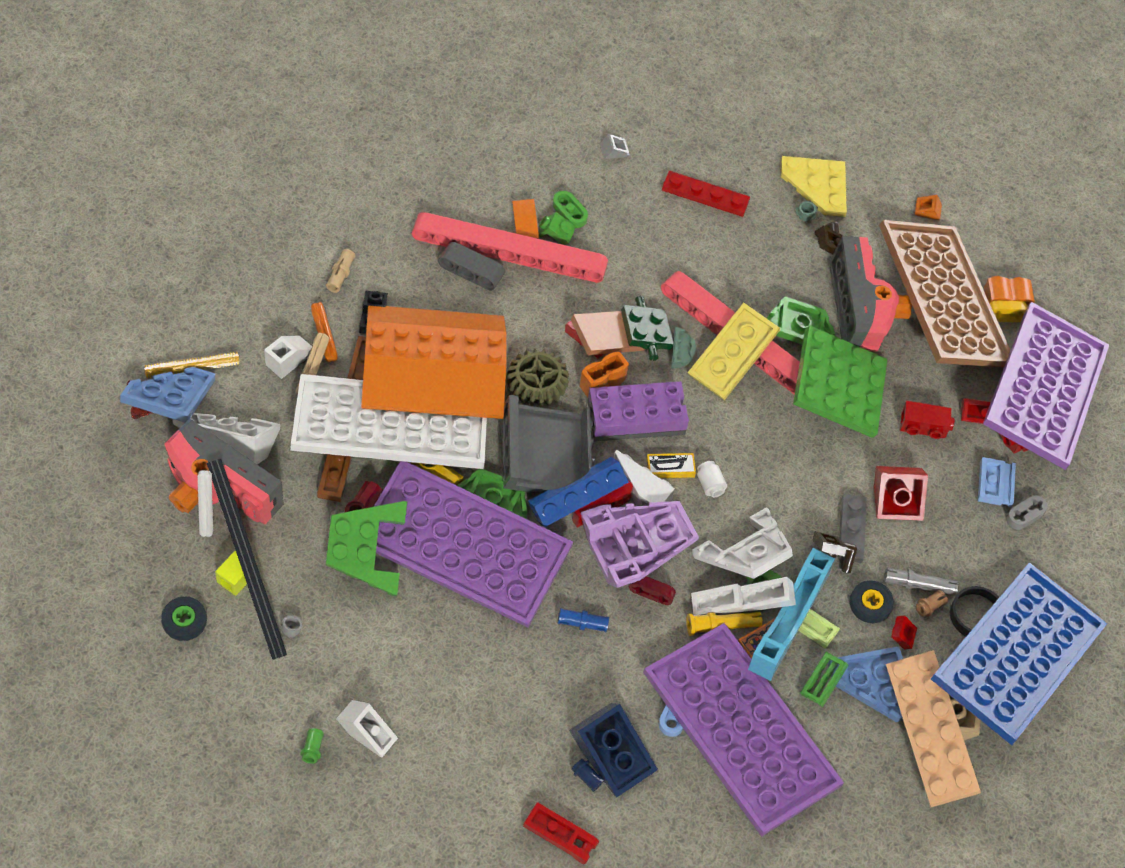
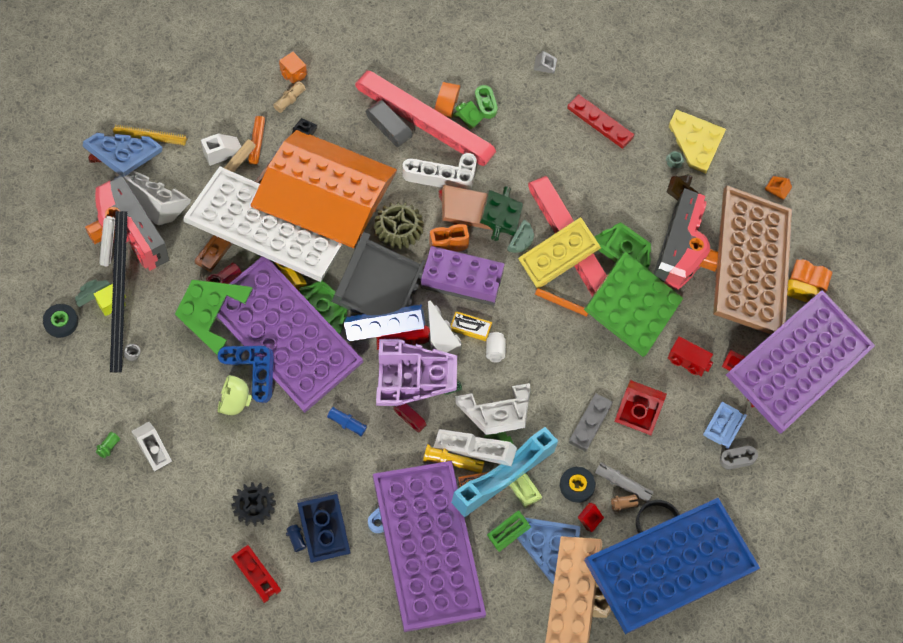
camera: 25 degrees right, 5 degrees up
(205, 570) = (88, 290): none -> sand green plate
(330, 236) = (292, 68): none -> orange brick
(439, 634) = (234, 396): none -> yellowish green cylinder
(452, 589) = (258, 364): none -> blue beam
(511, 749) = (253, 495): none -> black gear
(551, 306) = (456, 174): none -> white beam
(759, 406) = (560, 301): none -> orange bar
(834, 546) = (562, 429): dark brown plate -> none

